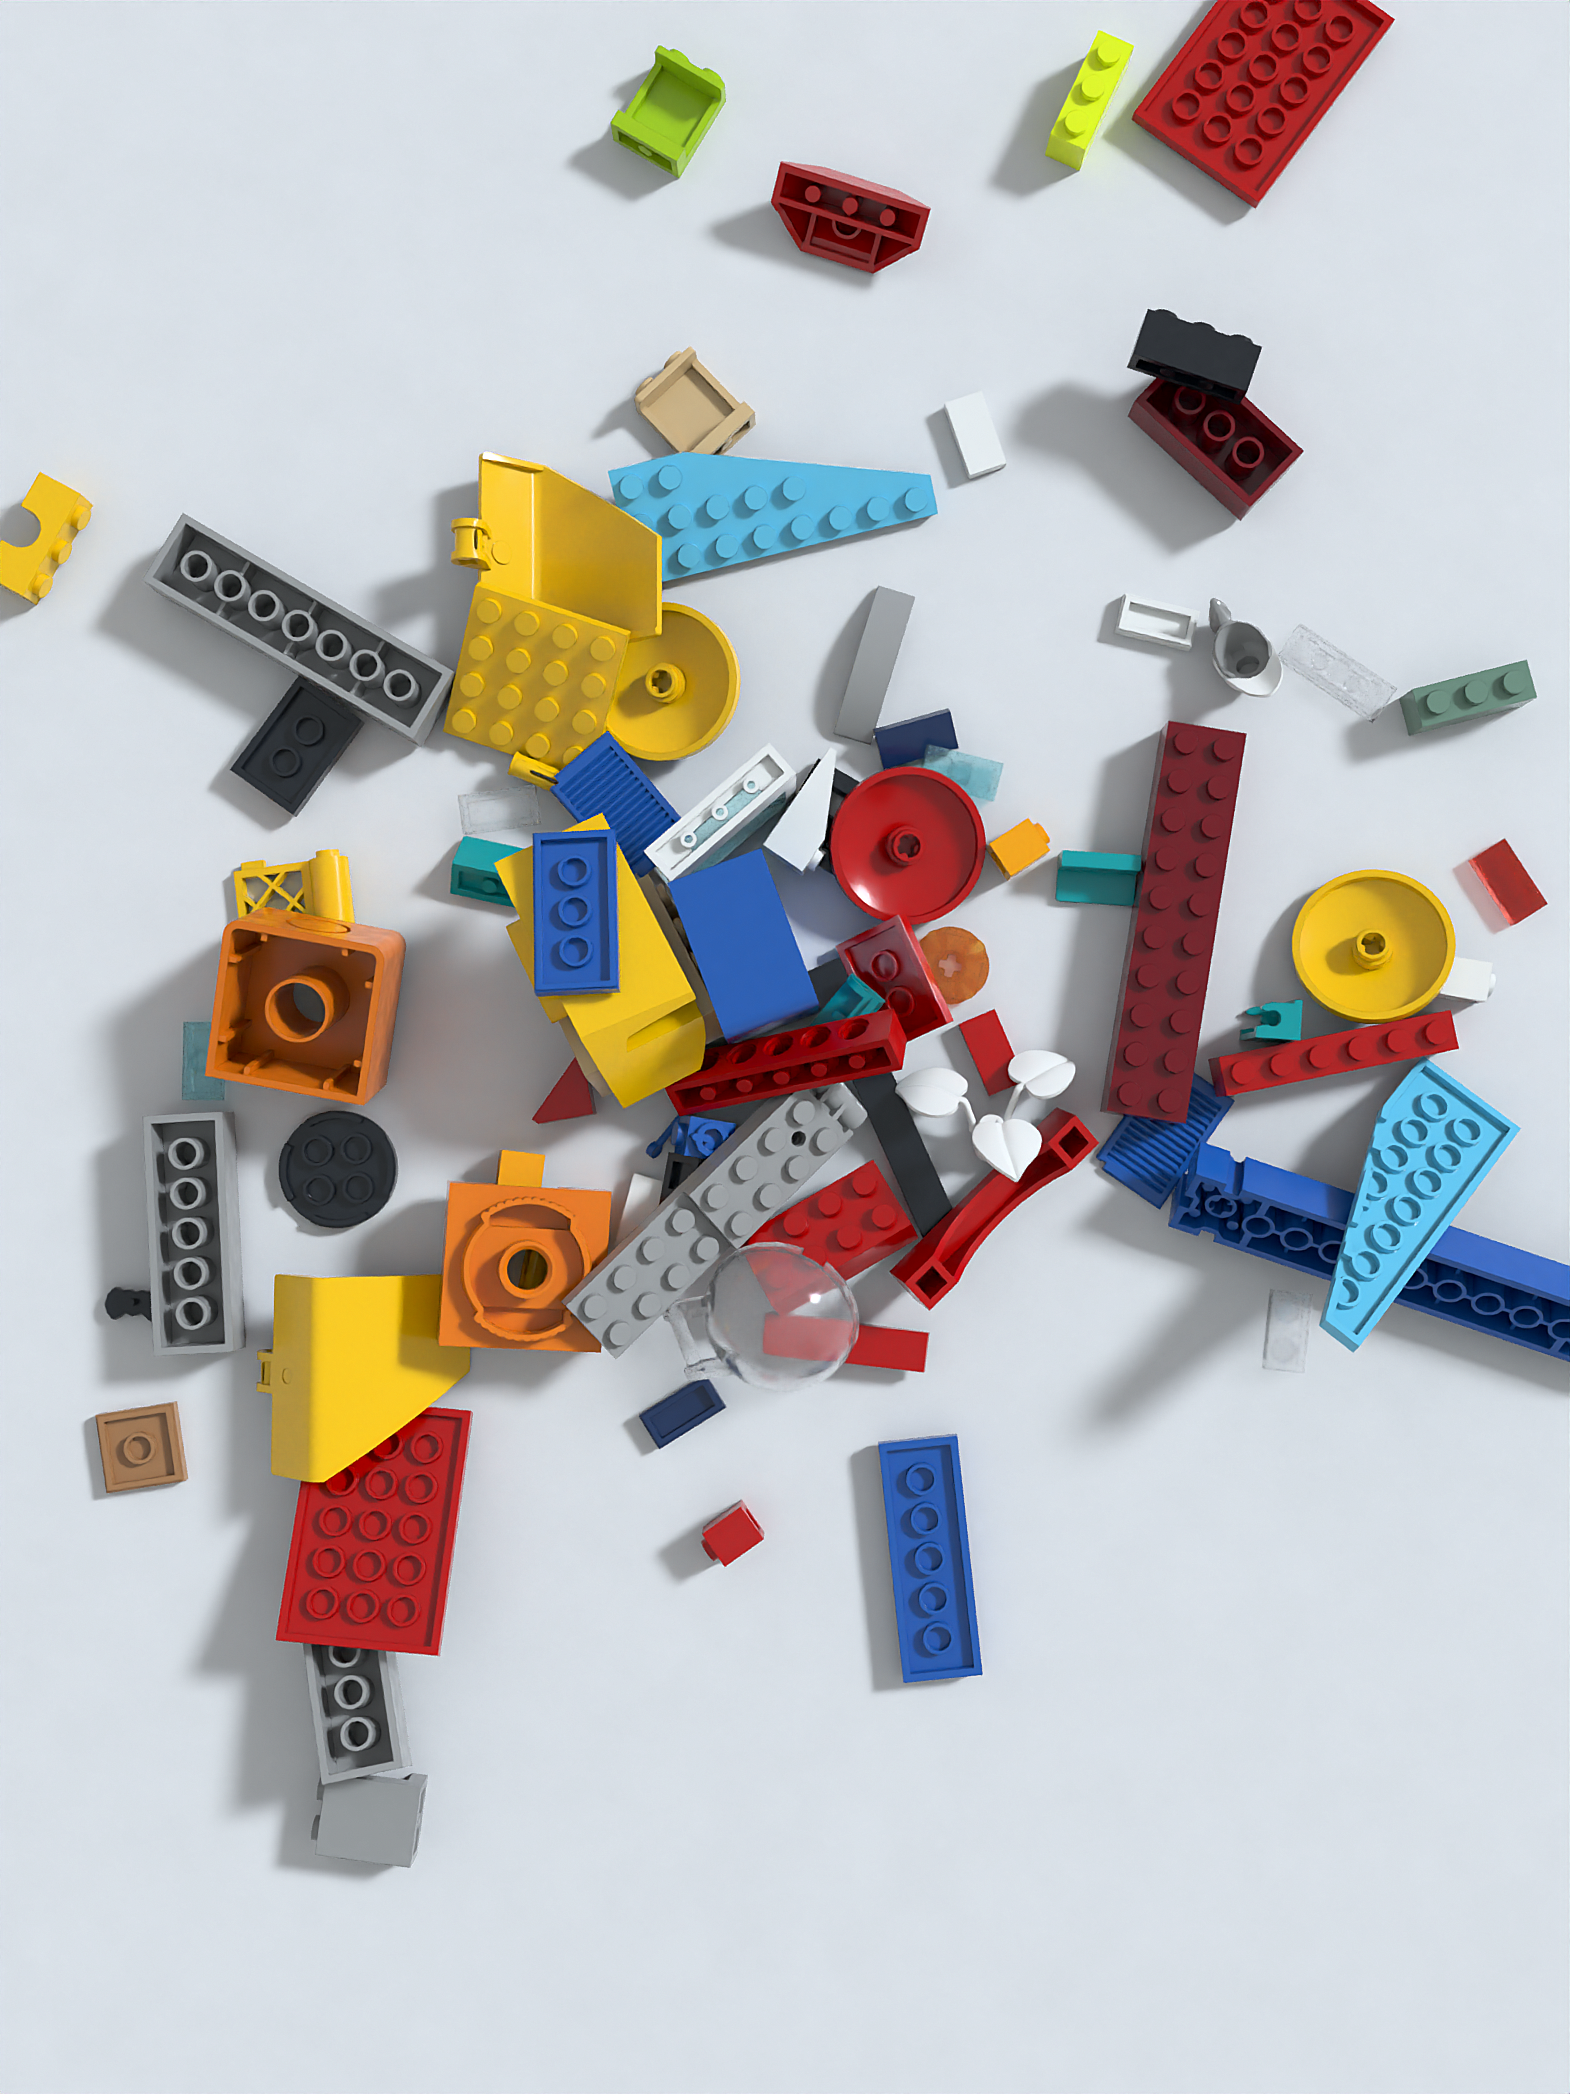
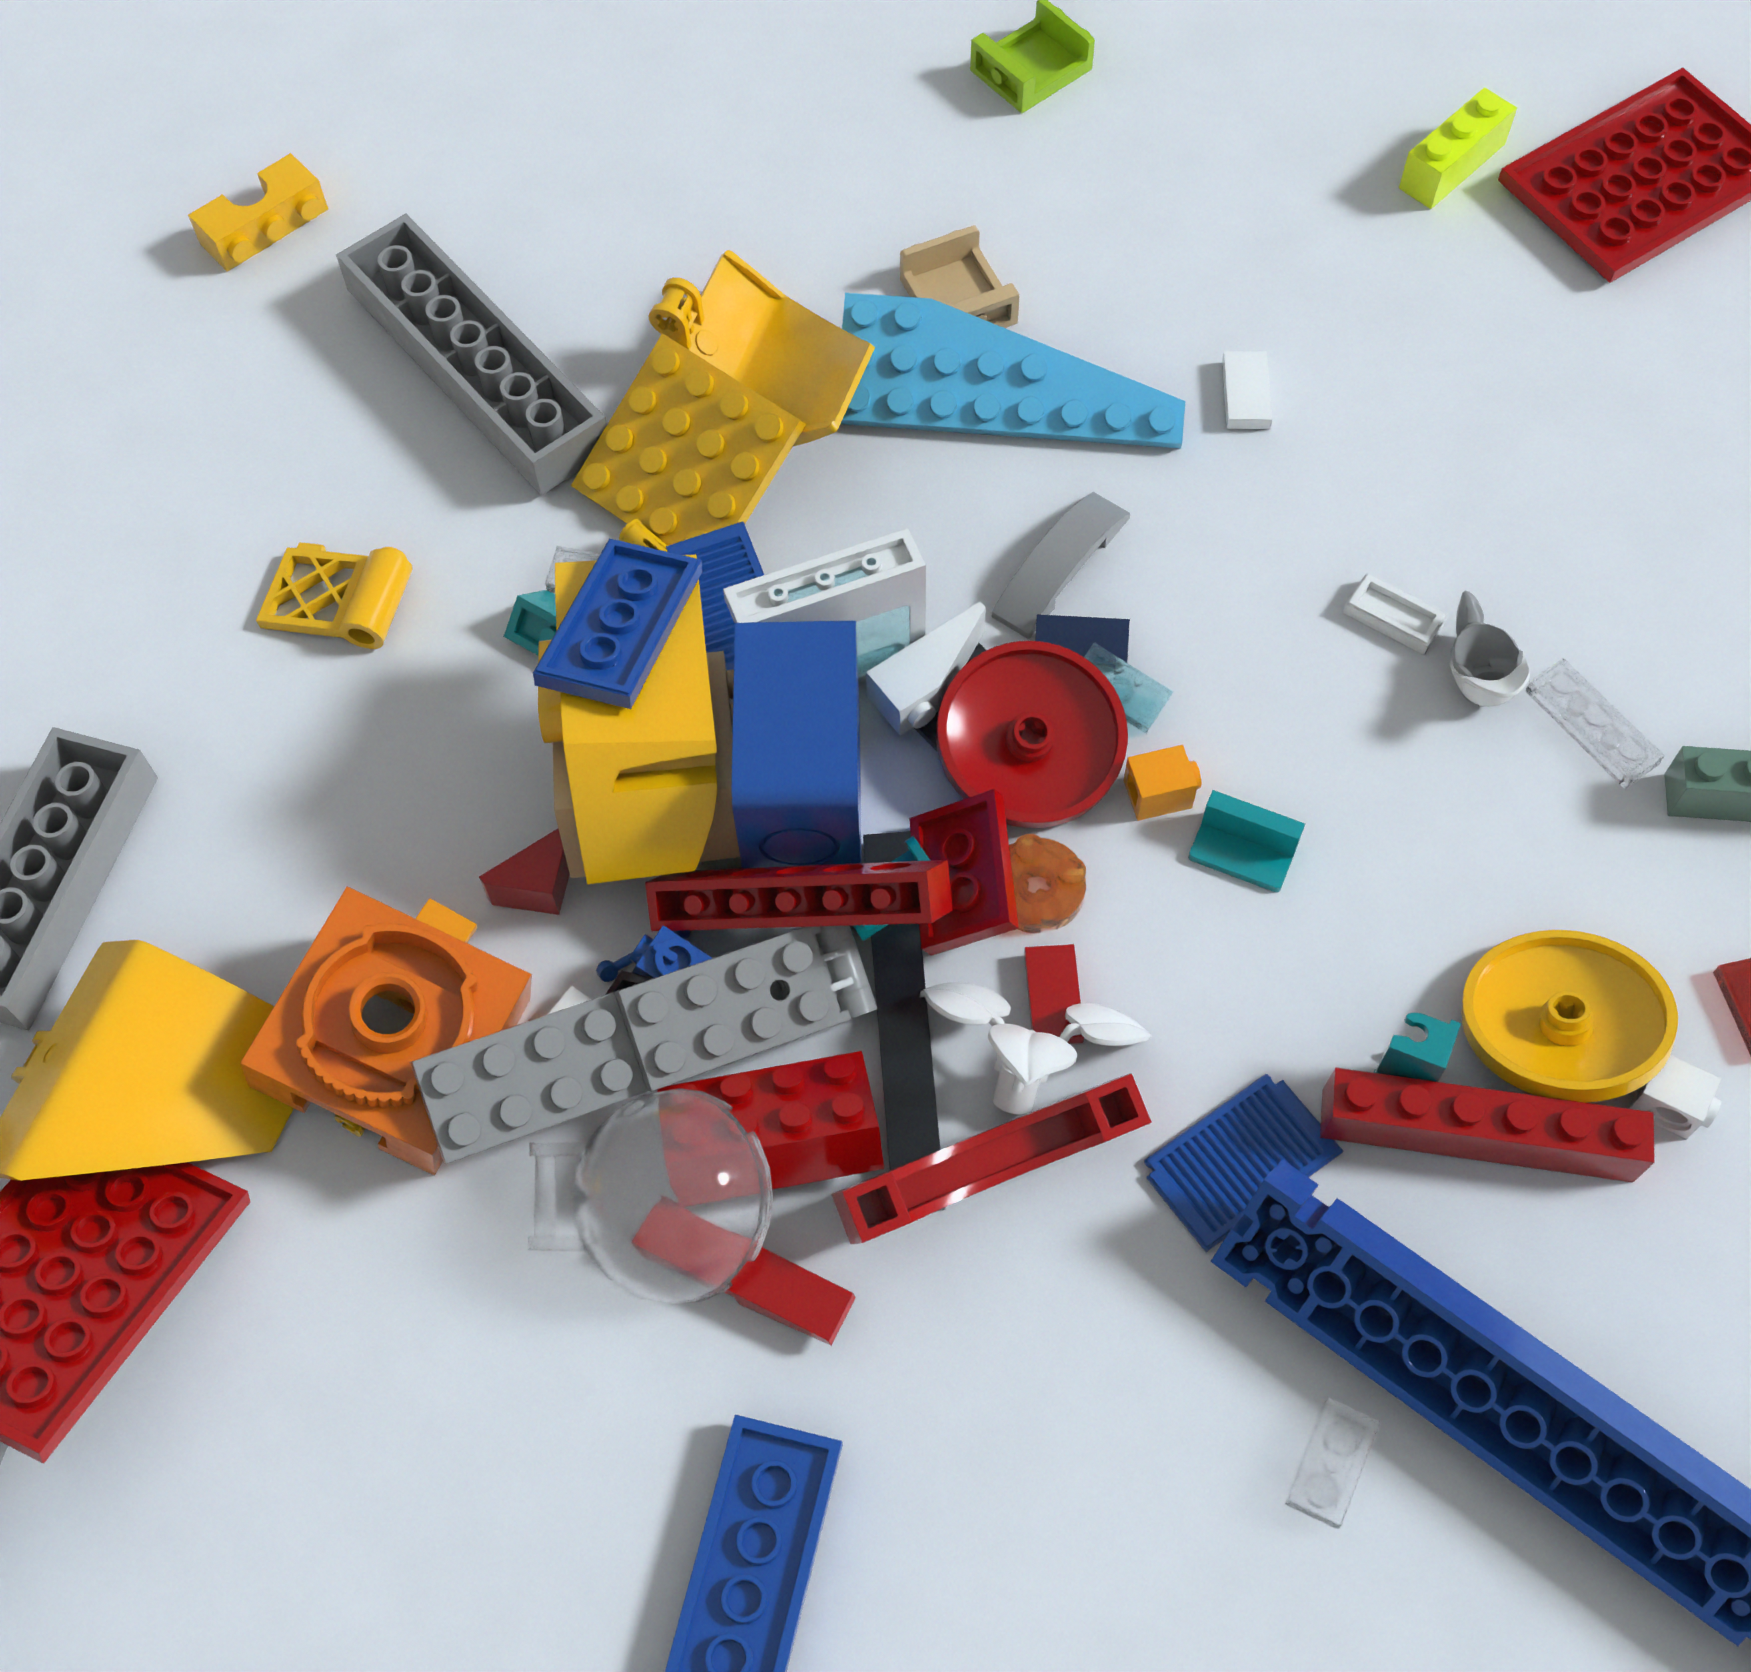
camera: 15 degrees right, 25 degrees down
(195, 1050) = (156, 714): clear light blue plate -> none
(265, 1038) = (247, 632): orange piece -> none
(297, 746) = (414, 454): black plate -> none
(338, 1169) = (239, 875): black tile -> none
(675, 688) = (831, 497): yellow dish -> none
(682, 1411) = (504, 1290): dark blue tile -> none
(731, 1534) = (496, 1466): red brick -> none
(847, 216) = (1176, 171): red wedge -> none
(1173, 923) = (1316, 924): dark red brick -> none
(1194, 356) = (1507, 355): black brick -> none
(1219, 443) = (1512, 449): dark red brick -> none
(1418, 1172) = (1553, 1296): medium azure wing -> none

